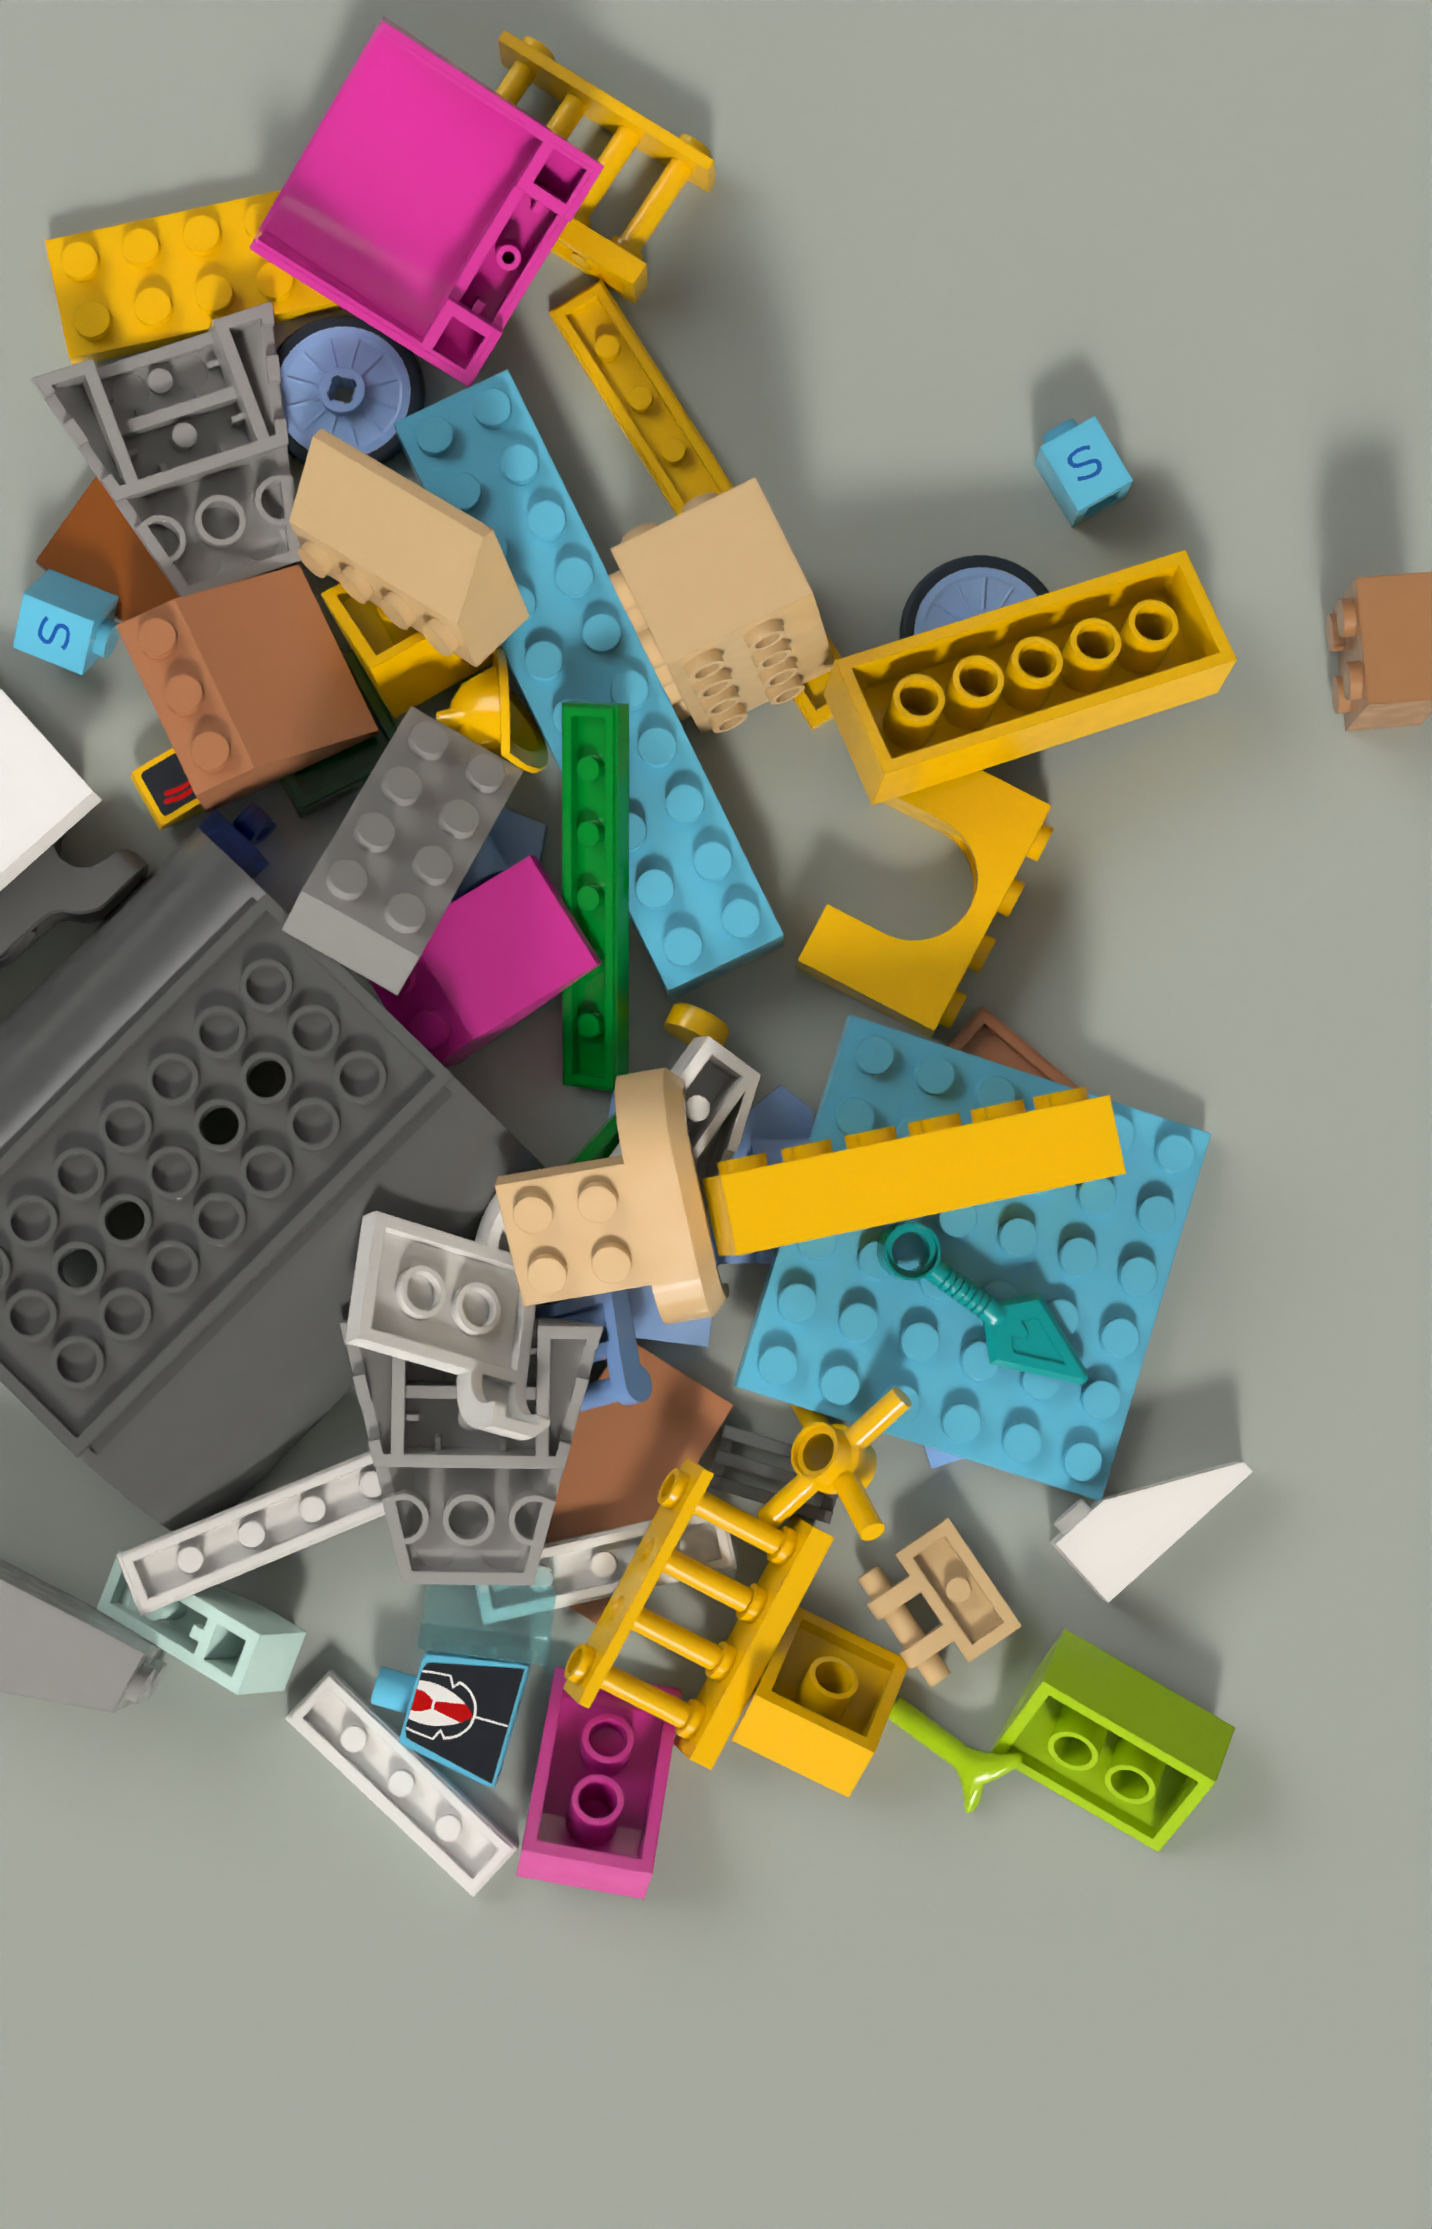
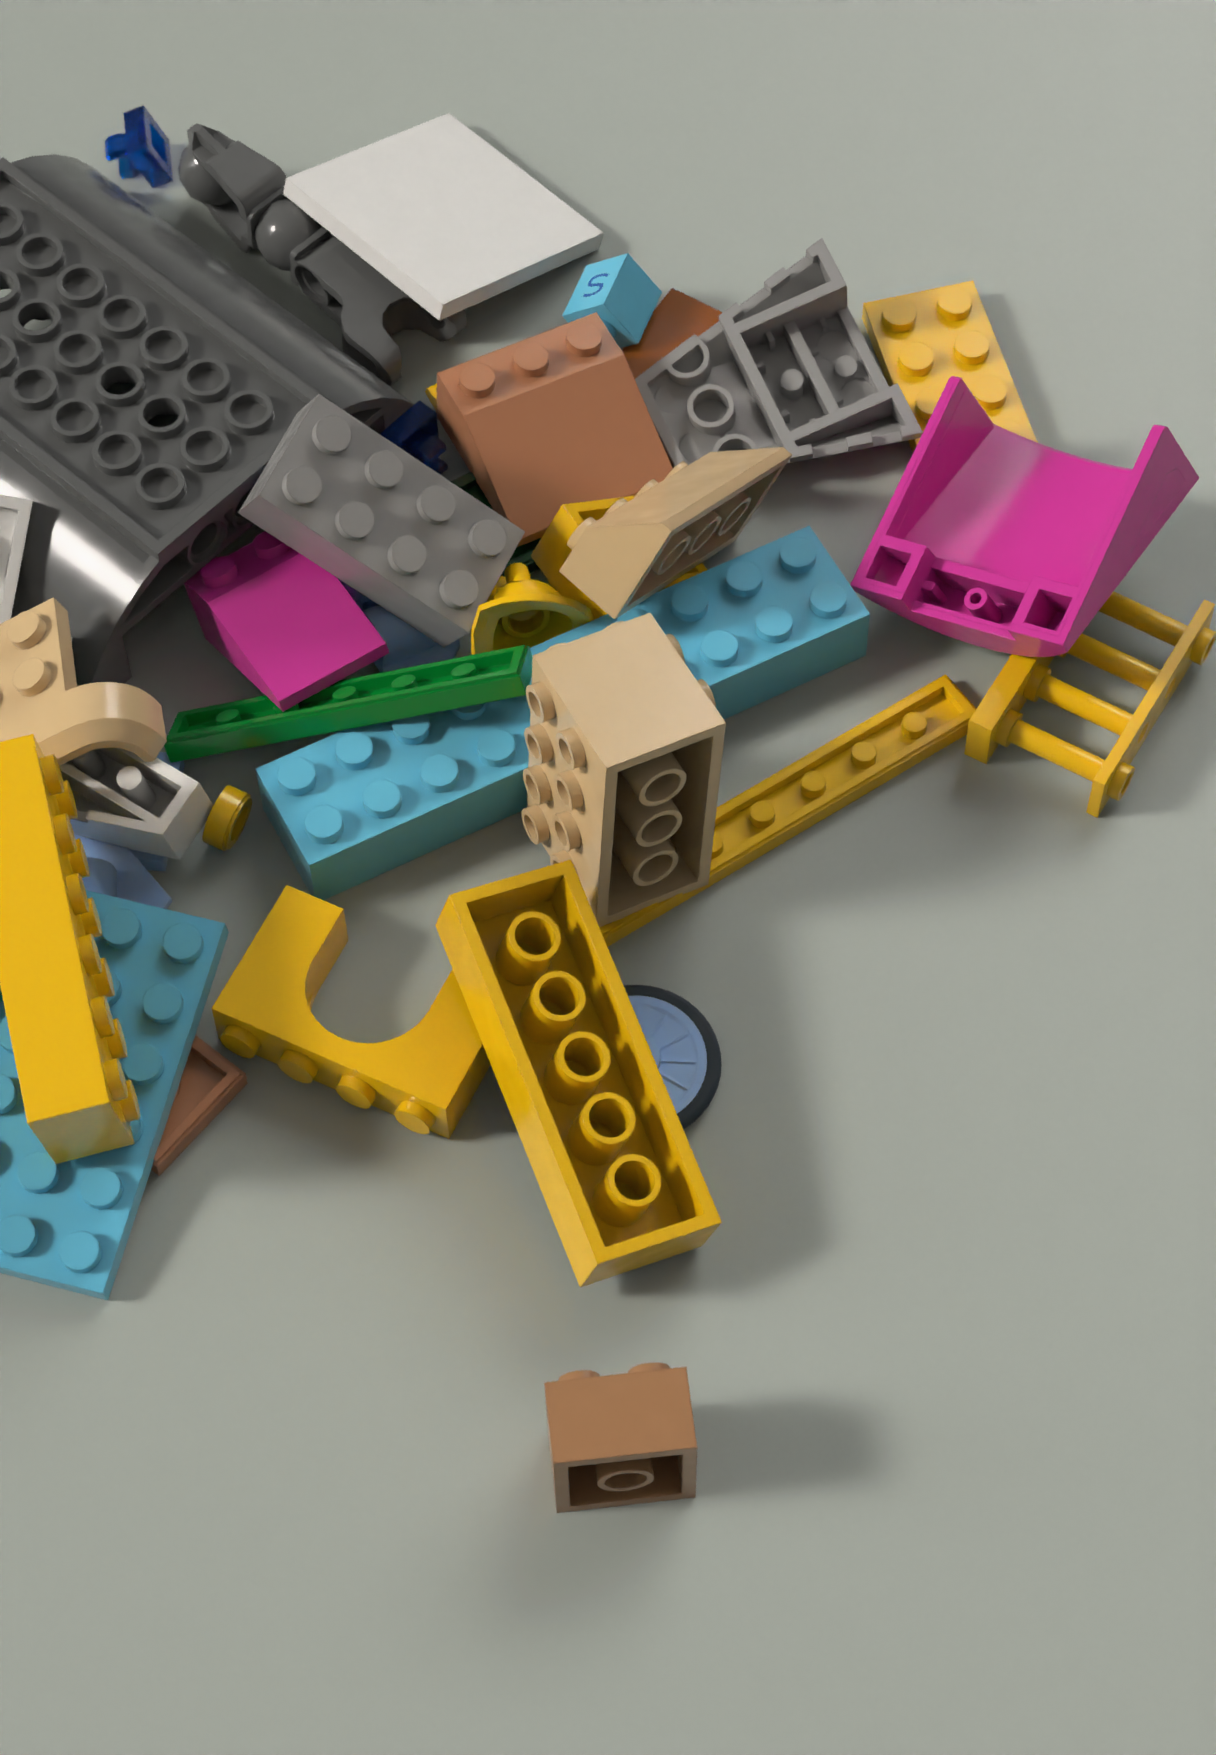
camera: 85 degrees right, 25 degrees down
(361, 358) = (839, 500): light blue wheel -> none
(1082, 469) = (814, 1146): medium azure brick -> none

